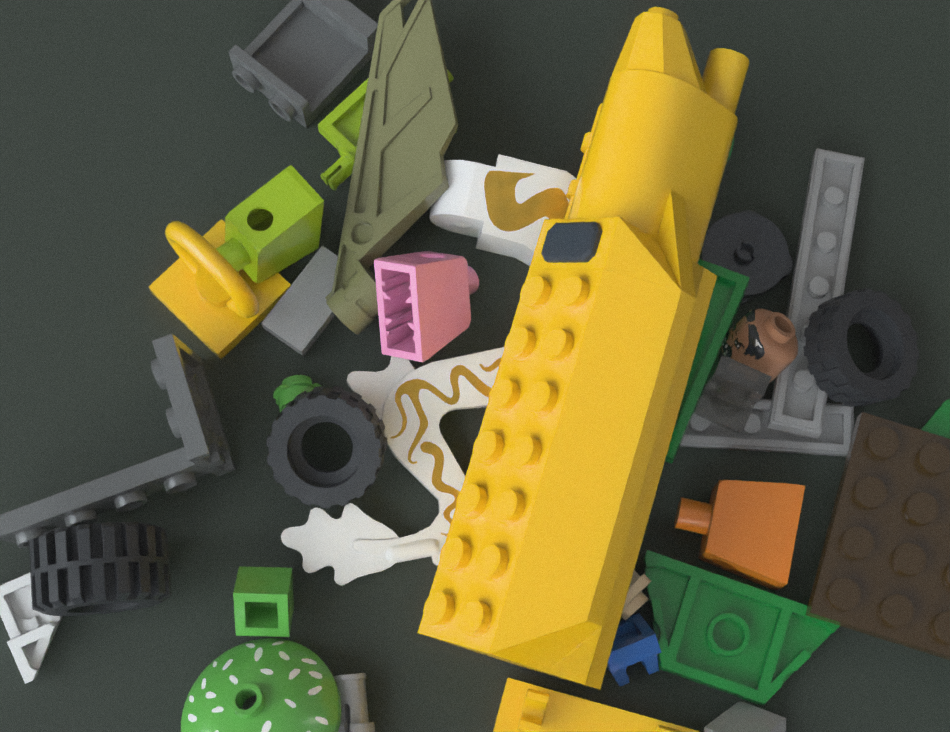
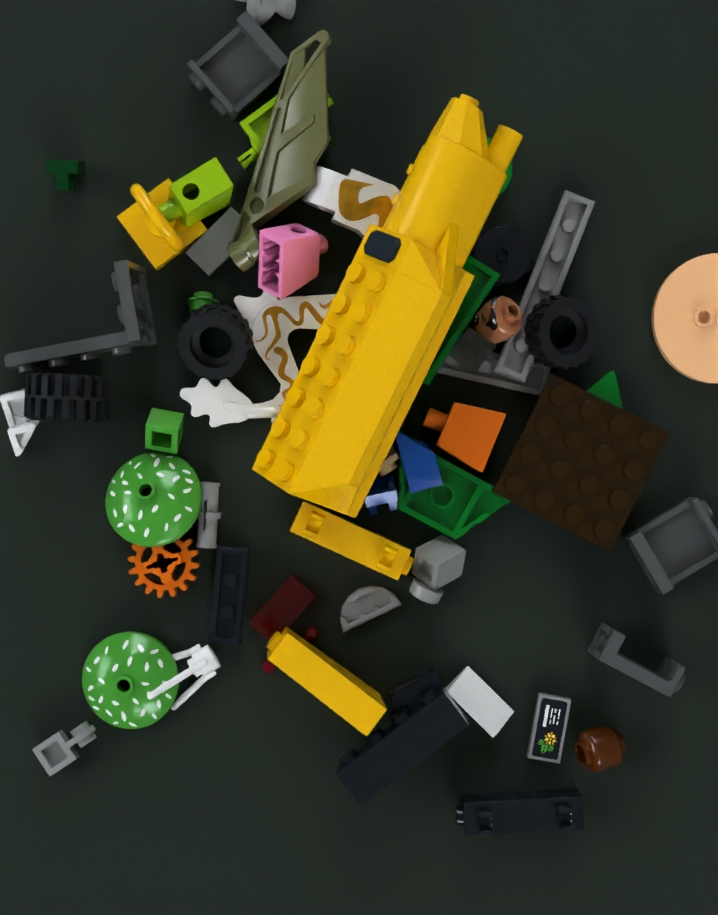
camera: 10 degrees right, 15 degrees up
(62, 232) = (65, 172): none -> dark green tile
(682, 586) = (418, 463): none -> blue slope

